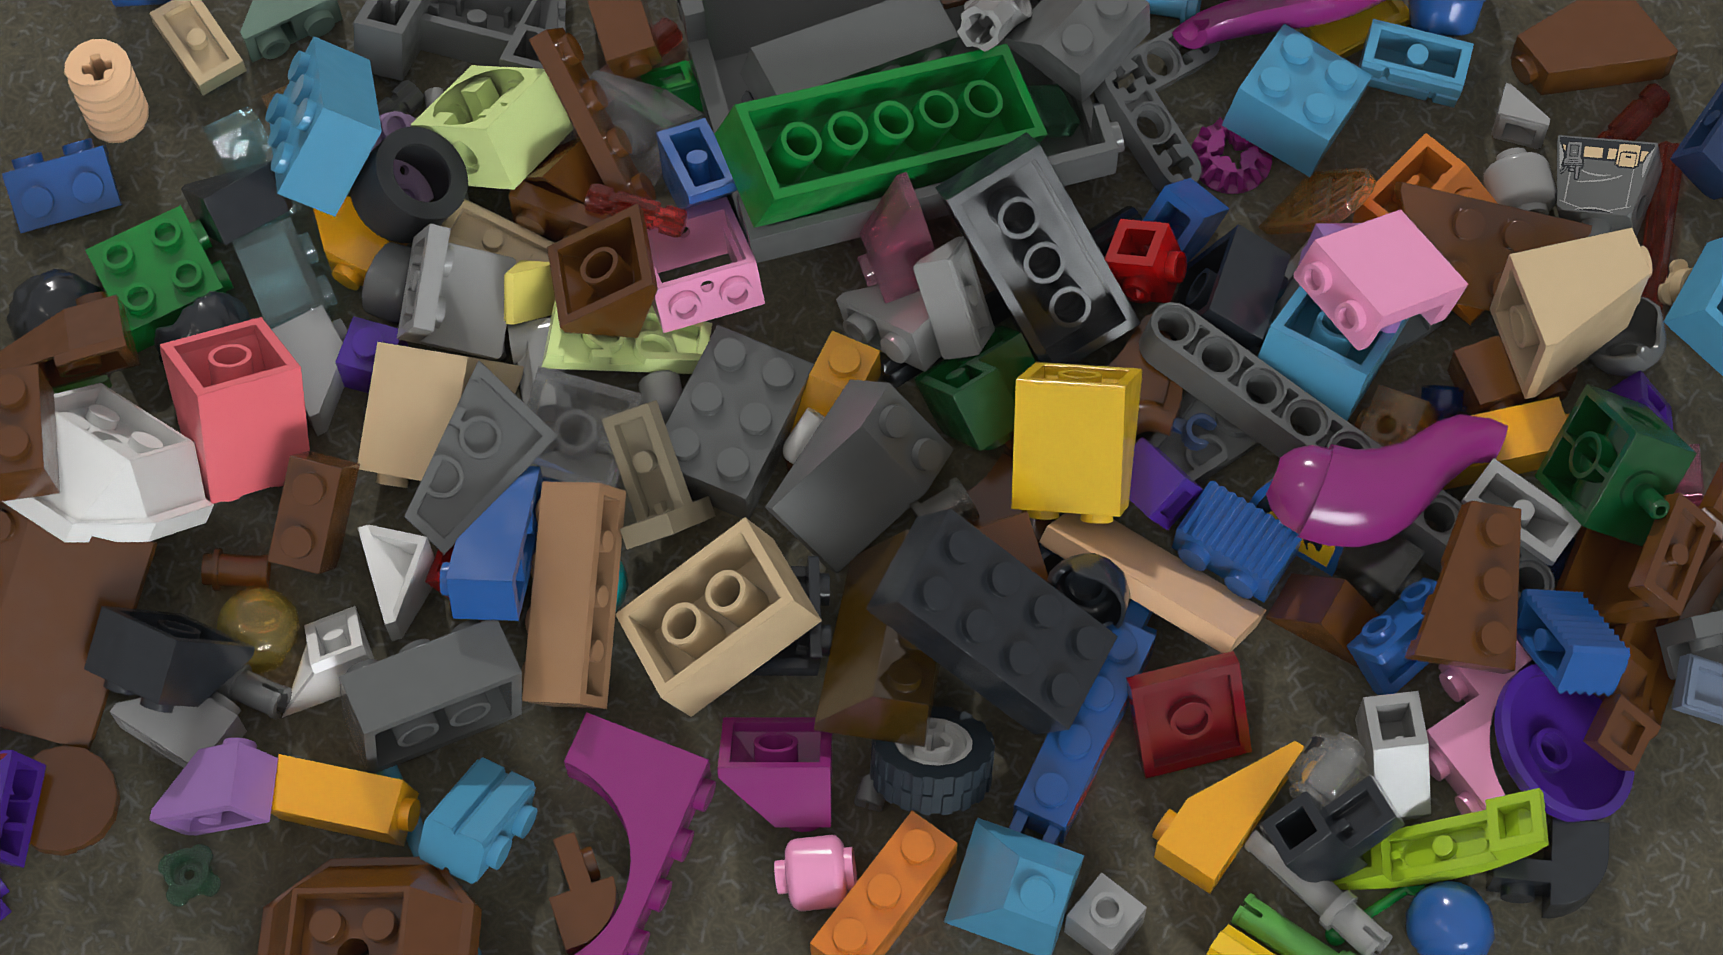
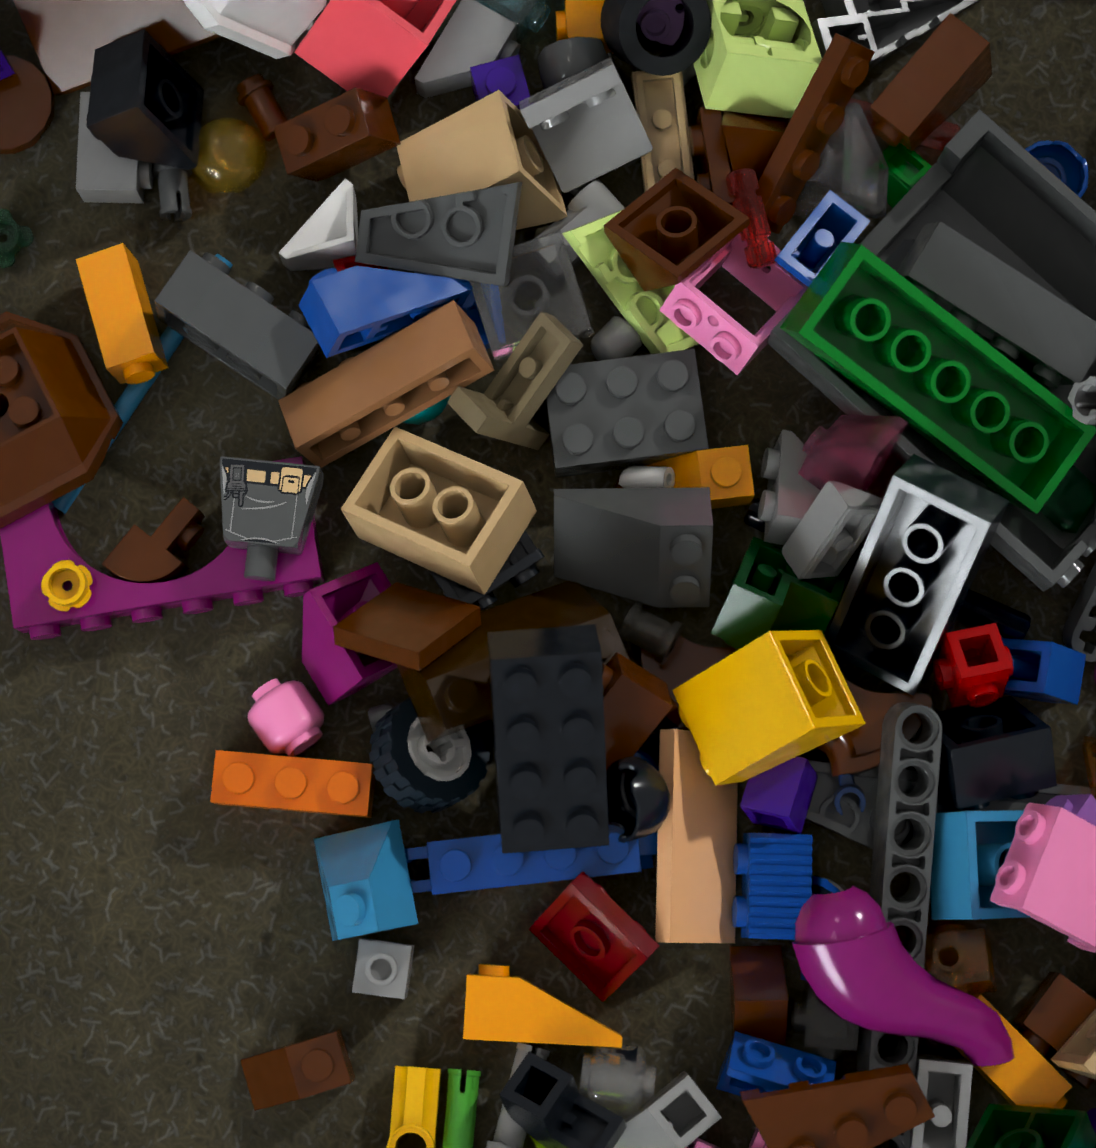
camera: 55 degrees right, 15 degrees up
(220, 790) = (70, 218): medium lavender slope -> none
(330, 651) = (239, 231): white slope -> none
(478, 821) = (163, 429): dark azure brick -> none
(528, 292) = (629, 175): light yellow slope -> none
(618, 762) = (267, 509): none -> dark grey torso
(807, 700) = (407, 626): none -> reddish brown tile
(1444, 399) = (1013, 985): clear blue plate -> none

